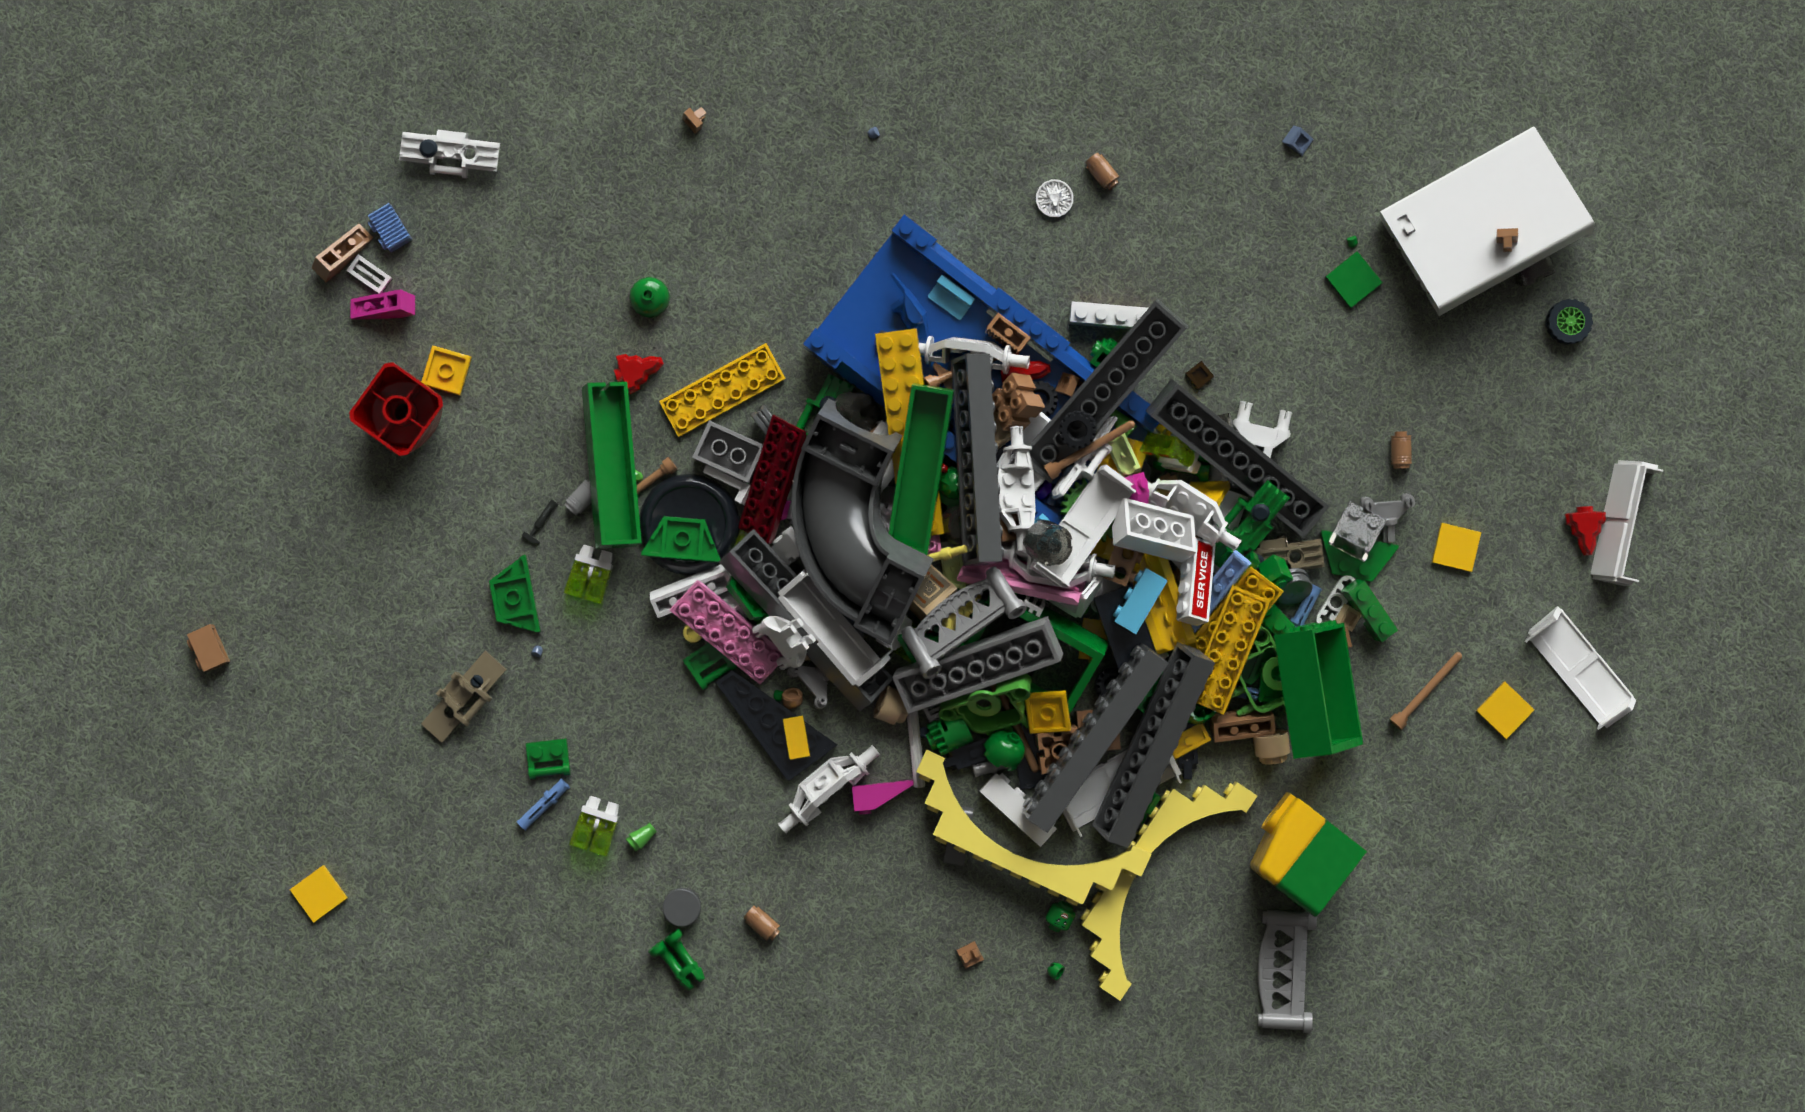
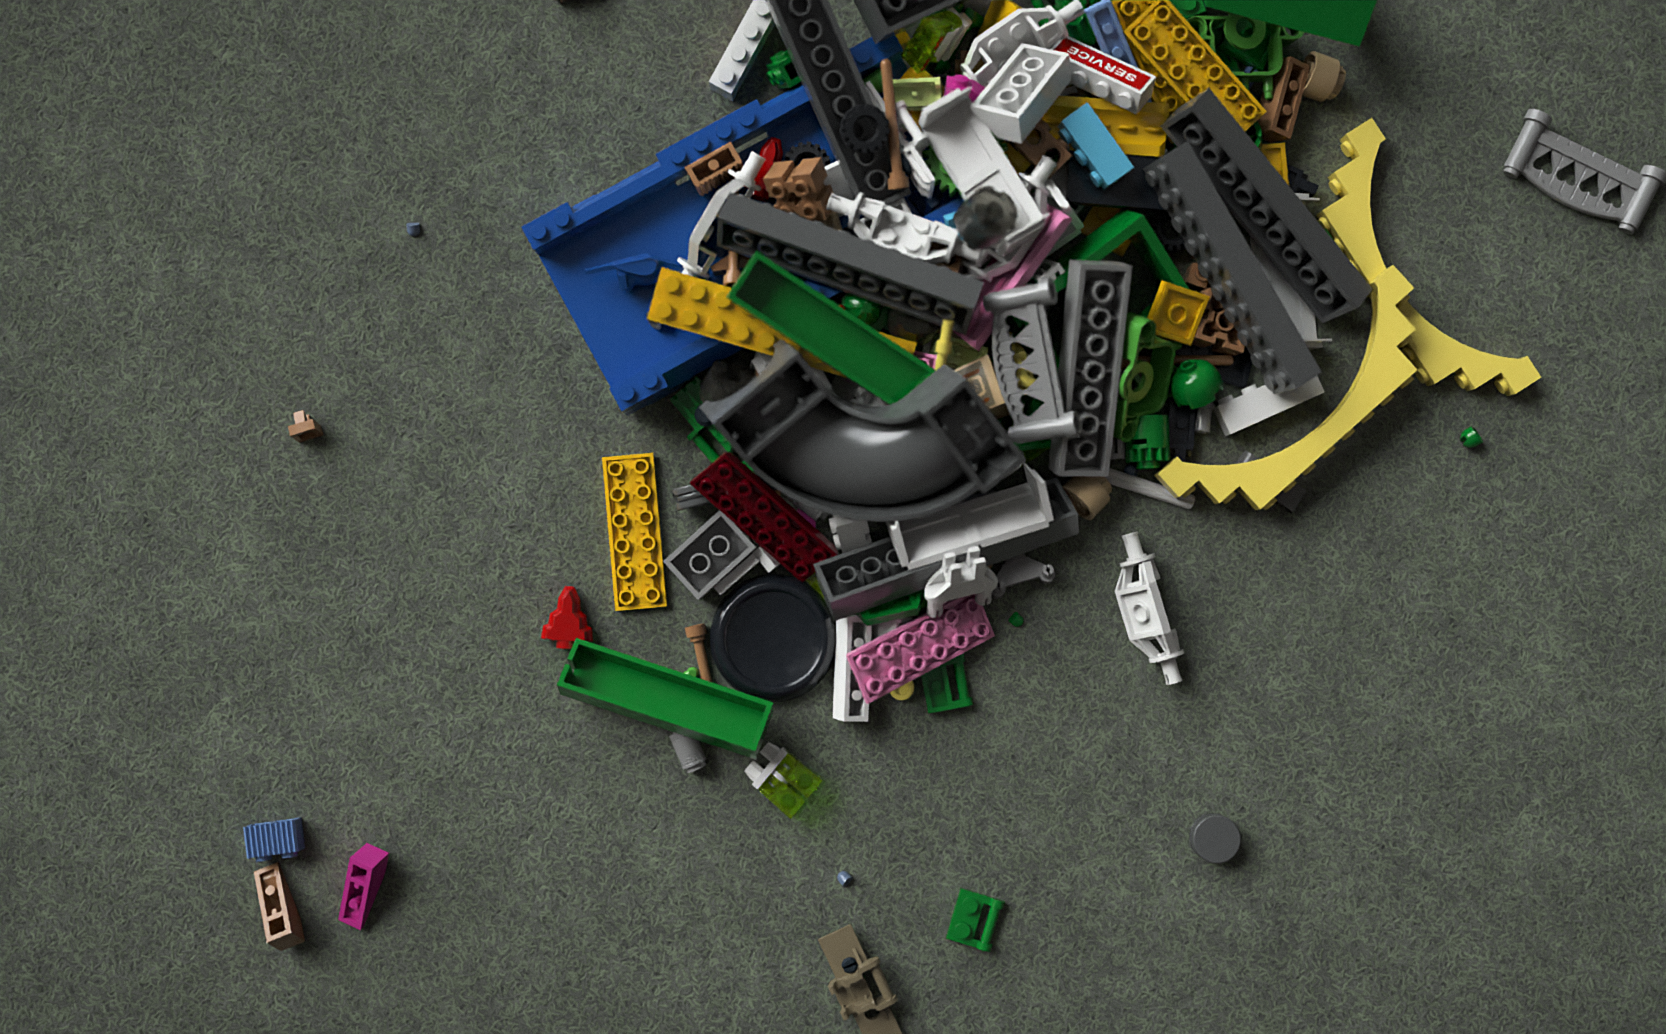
camera: 60 degrees left, 0 degrees up
(377, 406) = (470, 939): red piece -> none
(383, 284) = (299, 897): white tile -> none
(446, 370) = (470, 843): yellow tile -> none
(449, 144) = (208, 724): white piece -> none
(514, 596) = (770, 877): green wing -> none
(540, 521) = (695, 809): pearl dark grey piece -> none
(561, 786) = (1025, 947): medium blue pin -> none
(599, 821) = (1071, 895): clear neon green hips -> none
(640, 837) = (1113, 851): bright green cone -> none
(645, 305) = (492, 579): green cylinder -> none
(680, 973) = (1288, 857): green piece -> none
(682, 540) = (789, 653): green wing -> none
(762, 923) = (1273, 753): medium nougat head -> none
(765, 720) = (1062, 635): black wing -> none
(792, 698) = (1026, 605): medium nougat tile -> none
(796, 737) = (1076, 619): yellow tile -> none
(874, 795) = (1181, 557): dark pink slope -> none
(951, 297) = (643, 217): medium azure panel -> none
(969, 954) = (1410, 528): medium nougat tile -> none
(1044, 489) = (915, 205): dark purple tile -> none
(1054, 198) = (580, 53): white wheel -> none
(1060, 916) = (1412, 404): green head -> none
(1068, 384) = (803, 125): medium nougat tile -> none
(1304, 854) = (1472, 87): piece -> none

